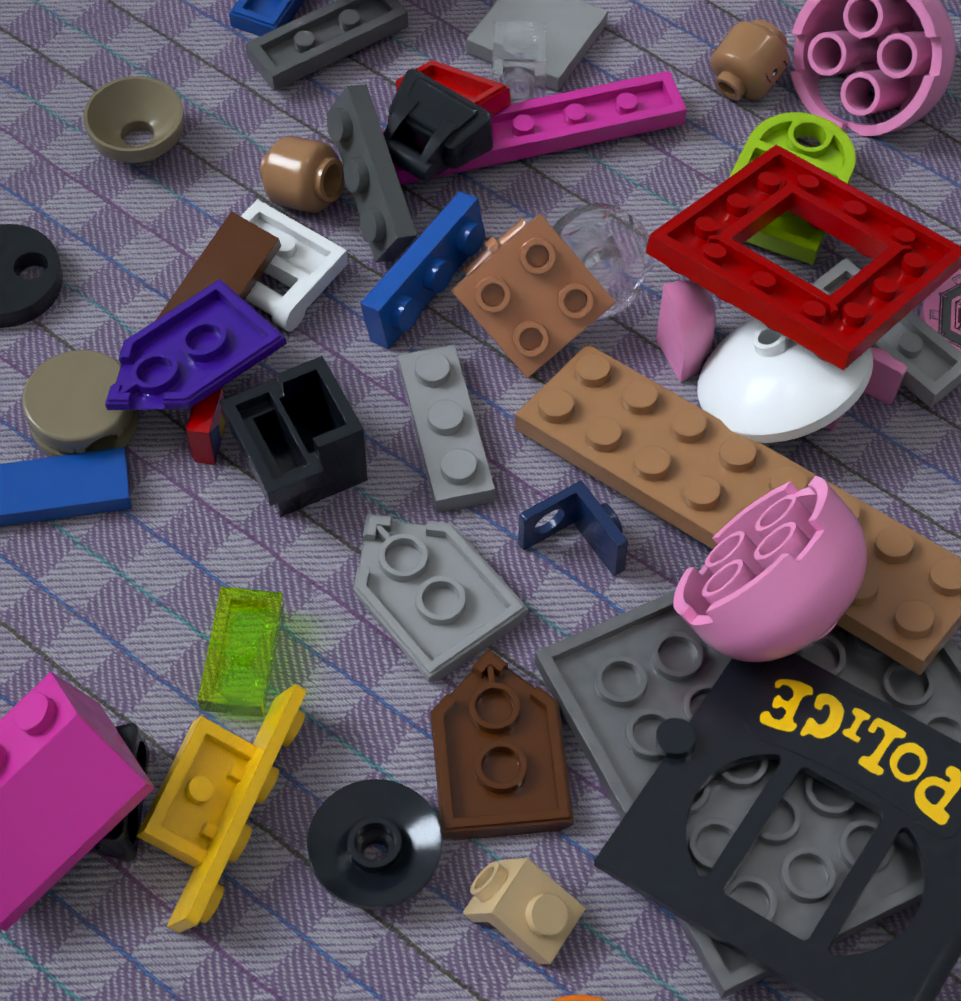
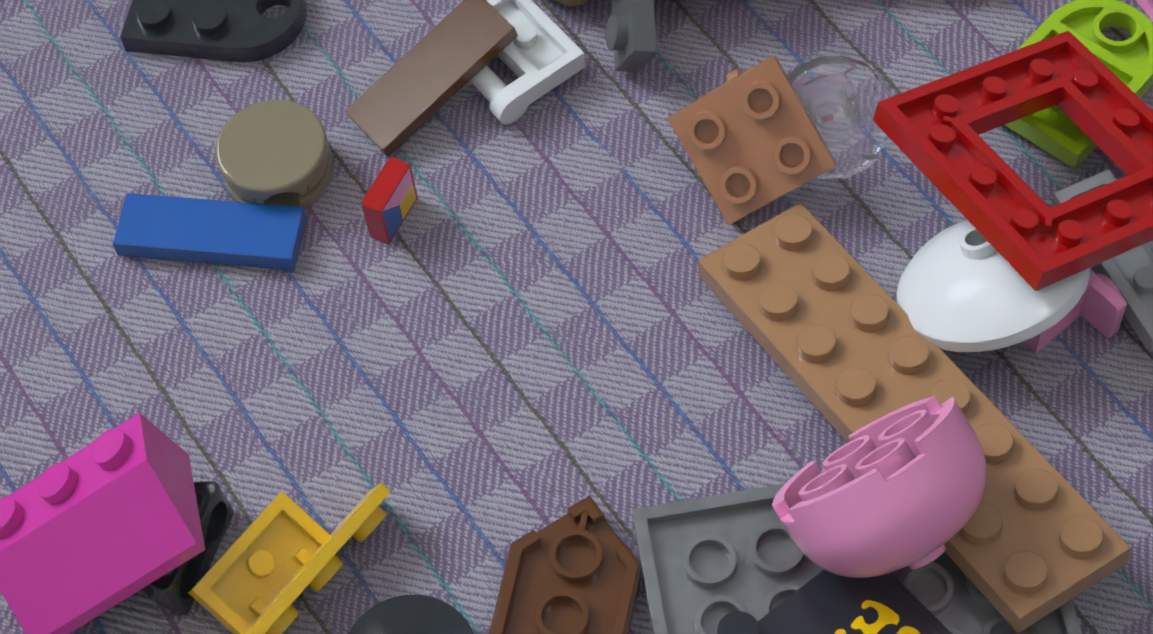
camera: 25 degrees right, 0 degrees up
(192, 352) = (389, 126): dark purple tile -> none
(241, 652) = (347, 438): clear neon green plate -> none
(298, 436) = (466, 236): black plate -> none
(423, 270) = (656, 89): blue plate -> none
(433, 593) = (556, 425): light grey tile -> none
(446, 429) = (626, 259): light grey plate -> none
(594, 521) = (724, 371): dark blue bracket -> none
(686, 326) = (908, 209): bright pink brick -> none

